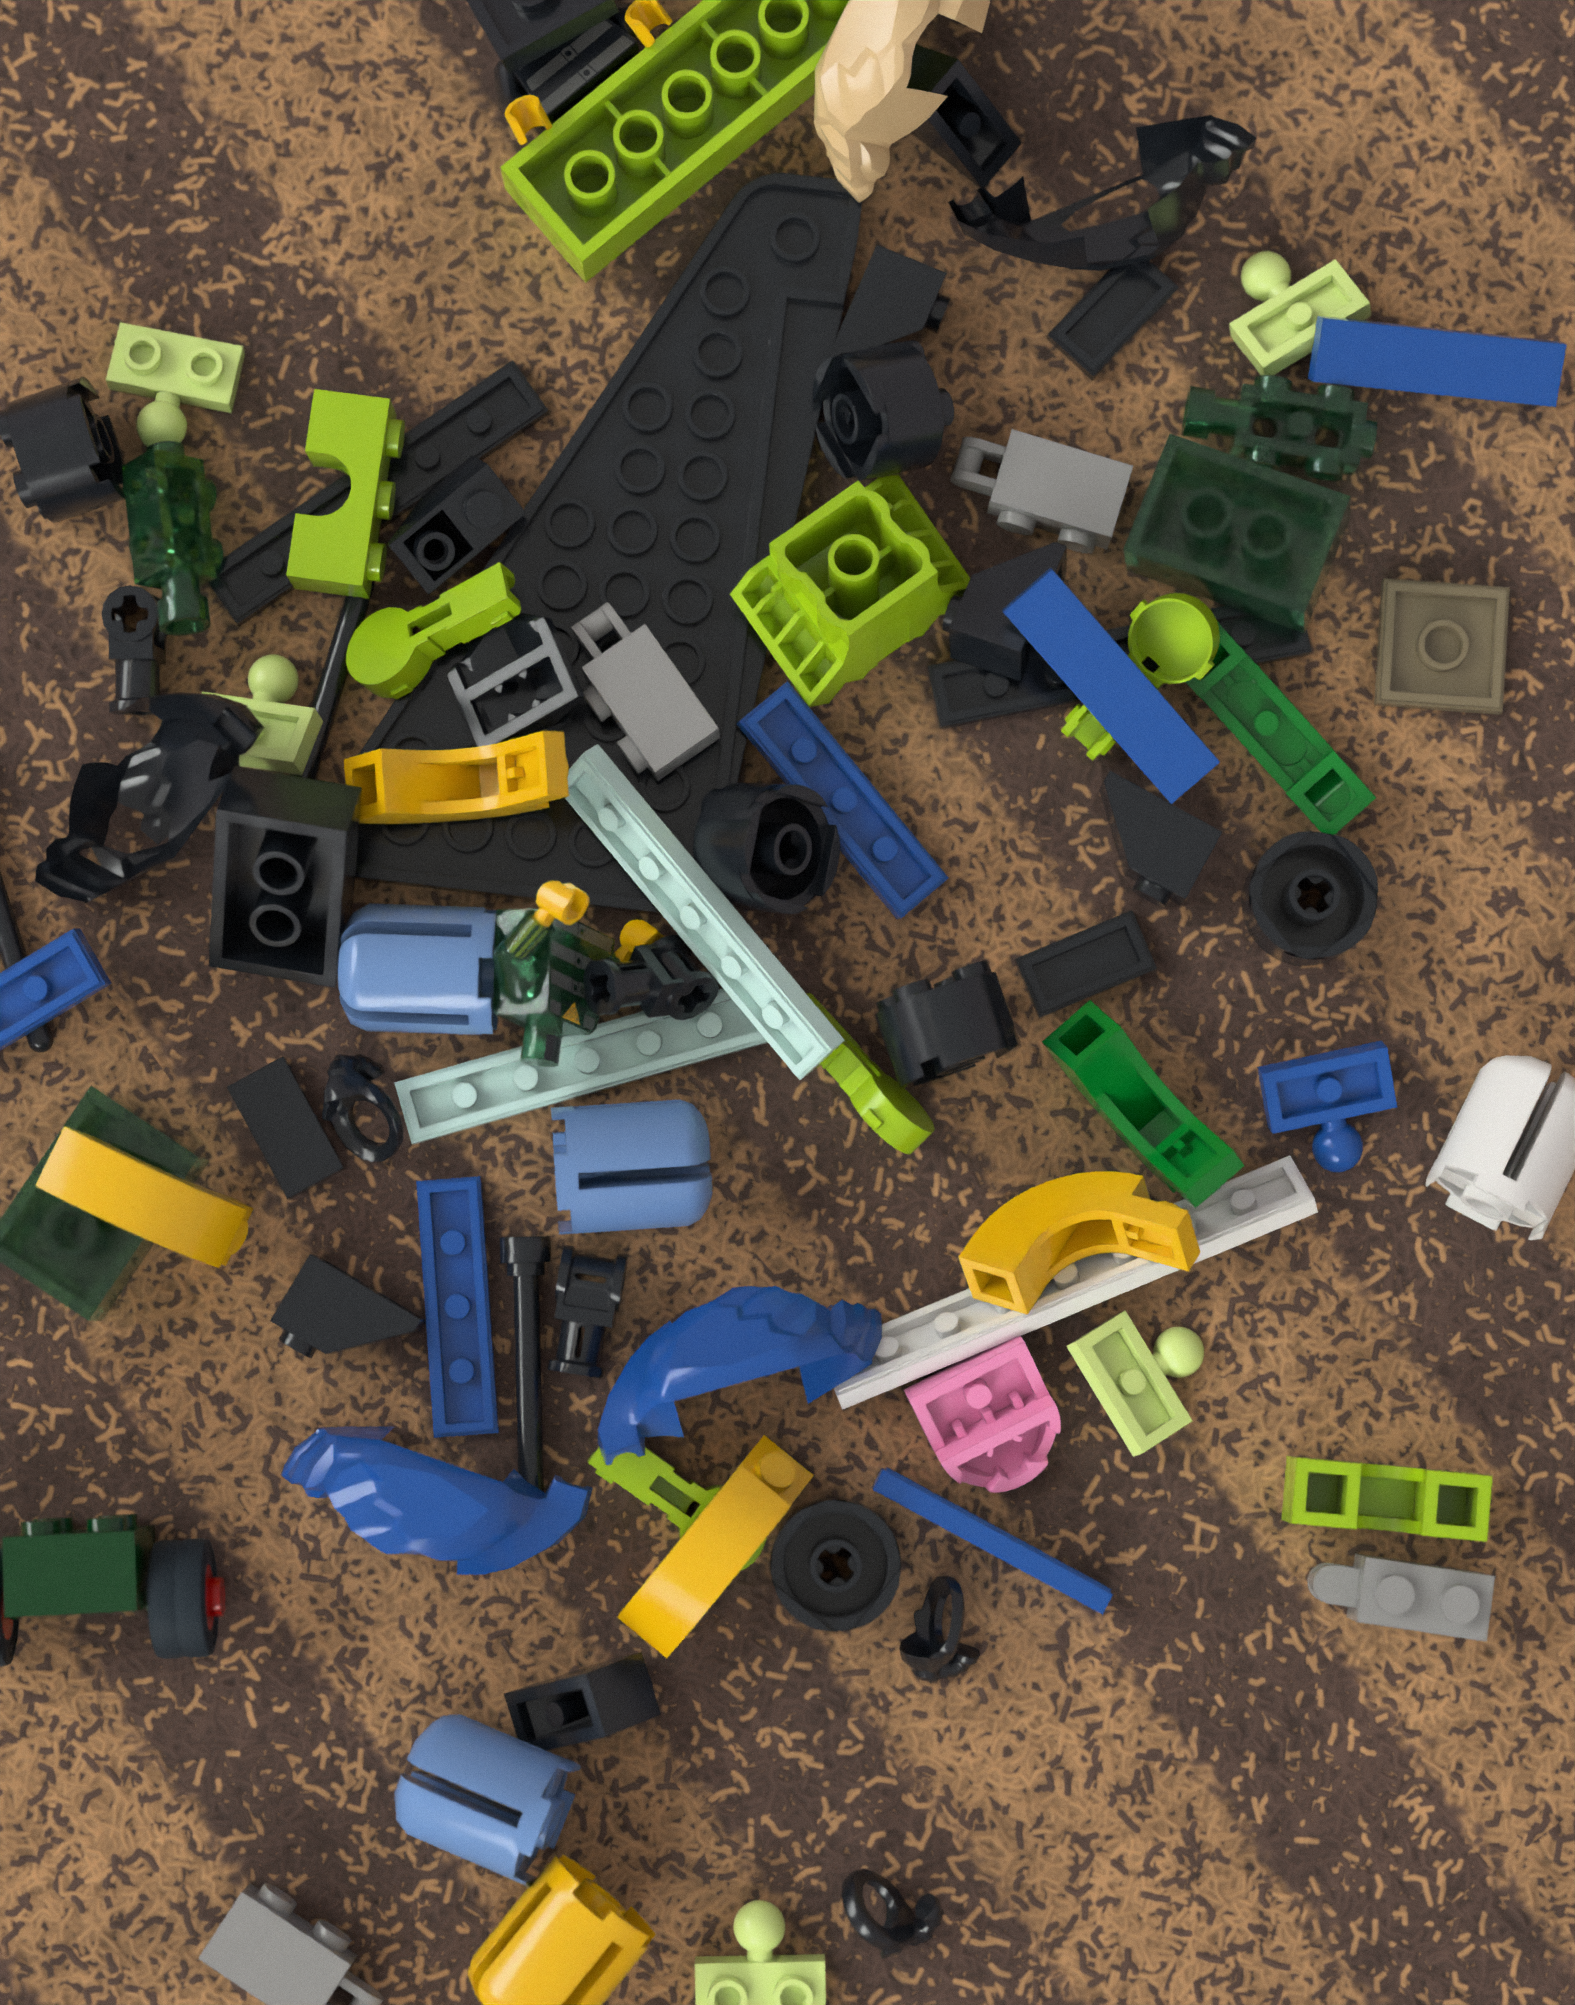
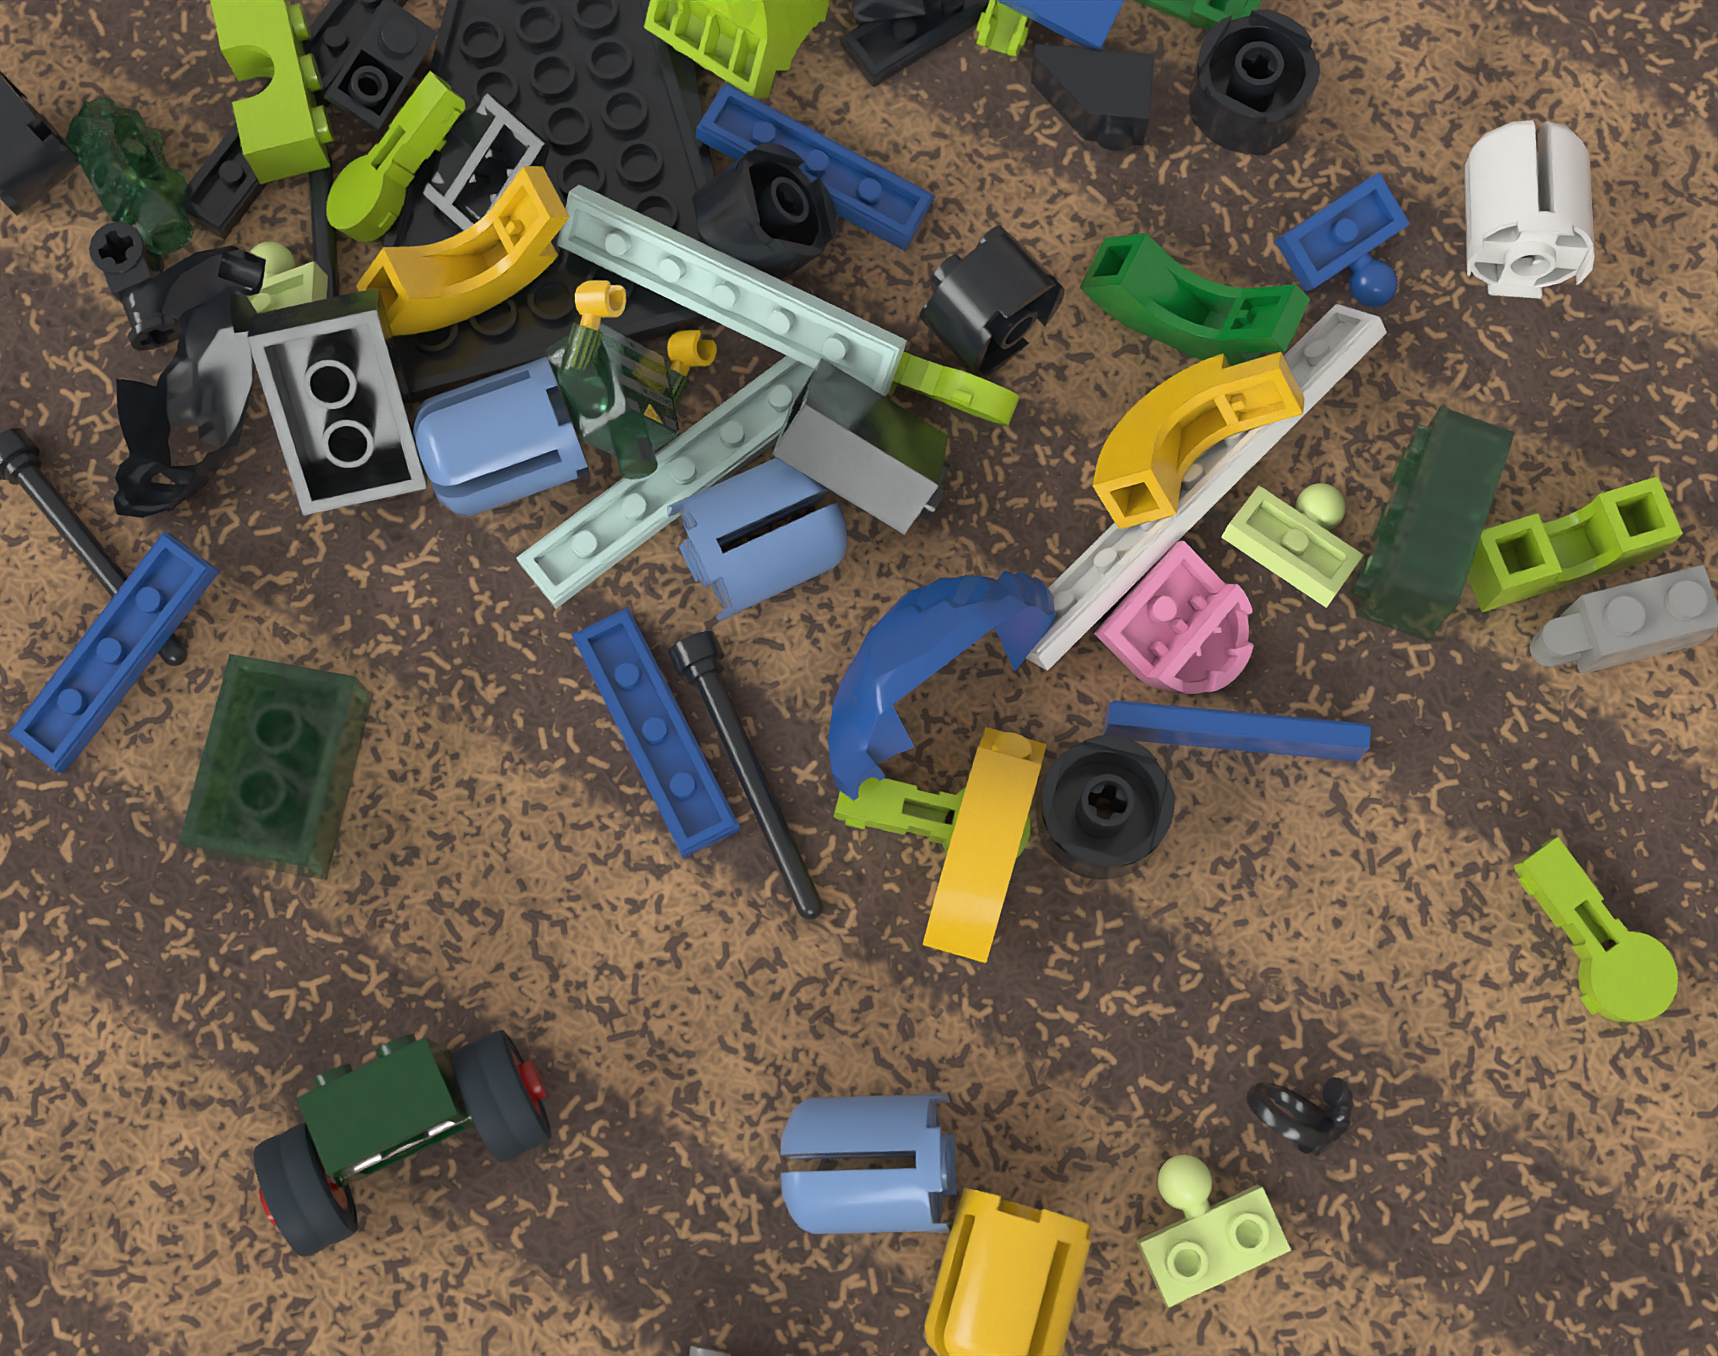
camera: 20 degrees left, 10 degrees down
(145, 1199) = (319, 726): yellow arch -> none
(174, 372) = (87, 57): yellowish green plate -> none
(286, 1127) = (432, 638): black tile -> none
(338, 1312) = (547, 775): black slope -> none
(351, 1082) = (472, 573): black piece -> none
(430, 1506) = (706, 907): blue animal -> none
(584, 1703) = (926, 1037): black slope -> none
(587, 1306) = (773, 674): black connector -> none
(643, 695) = (604, 136): light grey brick -> none
(656, 978) = (711, 365): black connector -> none
(758, 1129) = (864, 447): none -> brick
(926, 1649) = (1225, 859): black piece -> none
(1085, 964) = (1083, 219): black tile -> none
(1246, 1919) = (1631, 978): none -> lime piece
(1262, 1426) = (1431, 523): none -> clear green brick

